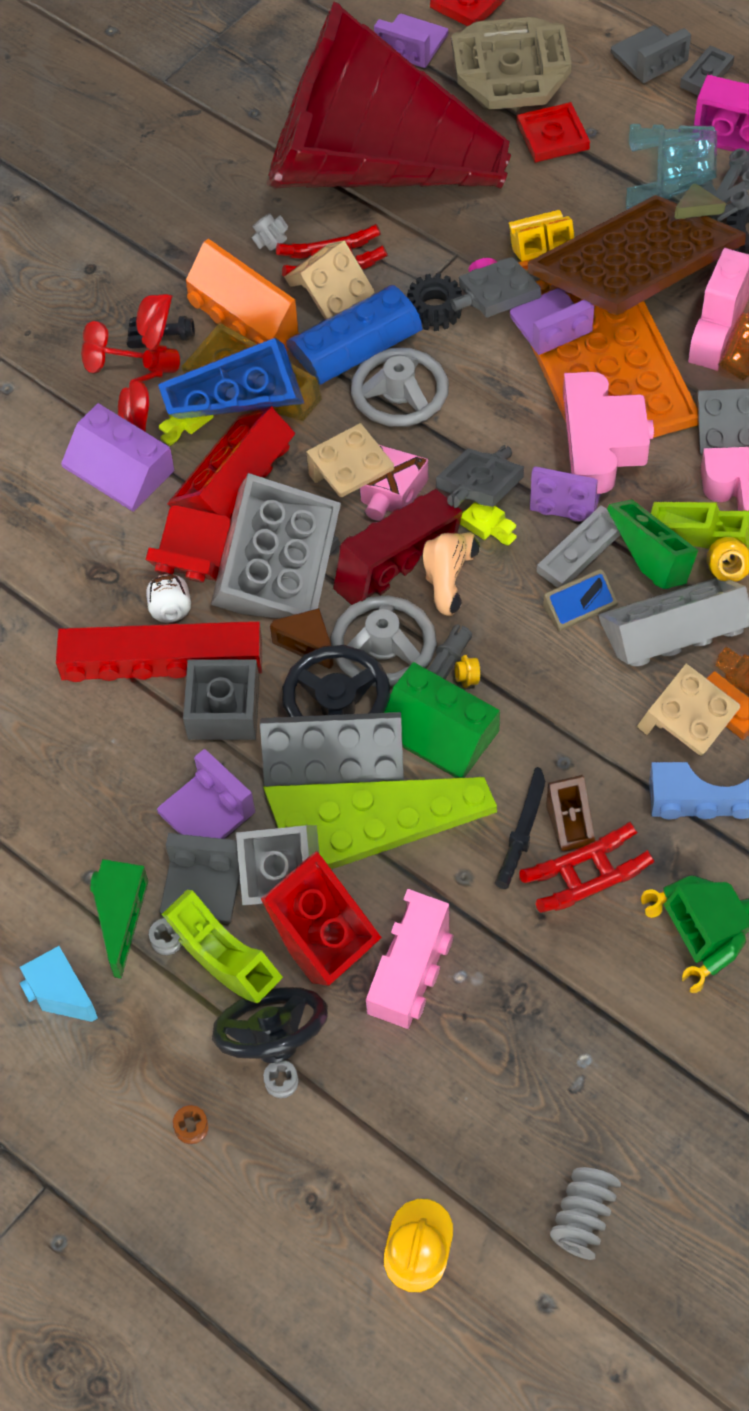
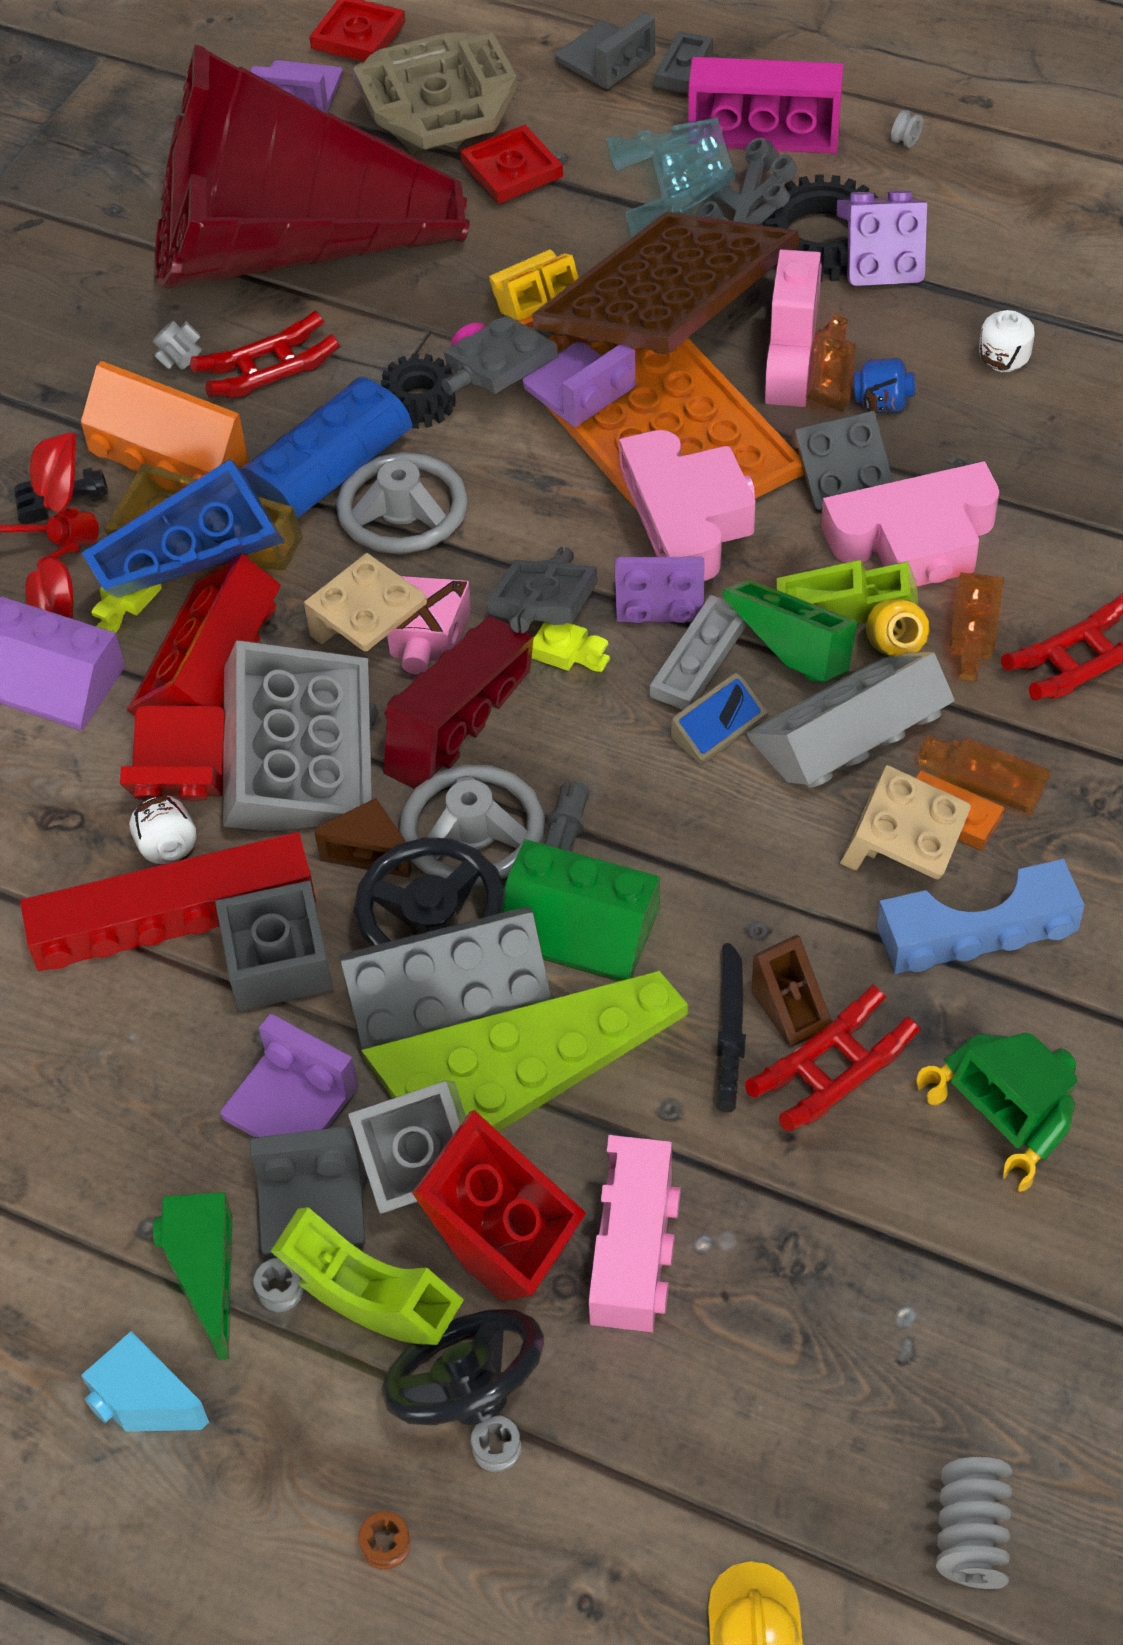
camera: 15 degrees left, 5 degrees down
(332, 279) = (276, 385): tan bracket -> none
(443, 561) = (527, 705): light nougat head -> none
(467, 671) = (597, 838): yellow plate -> none
(698, 203) = (727, 209): olive tile -> none

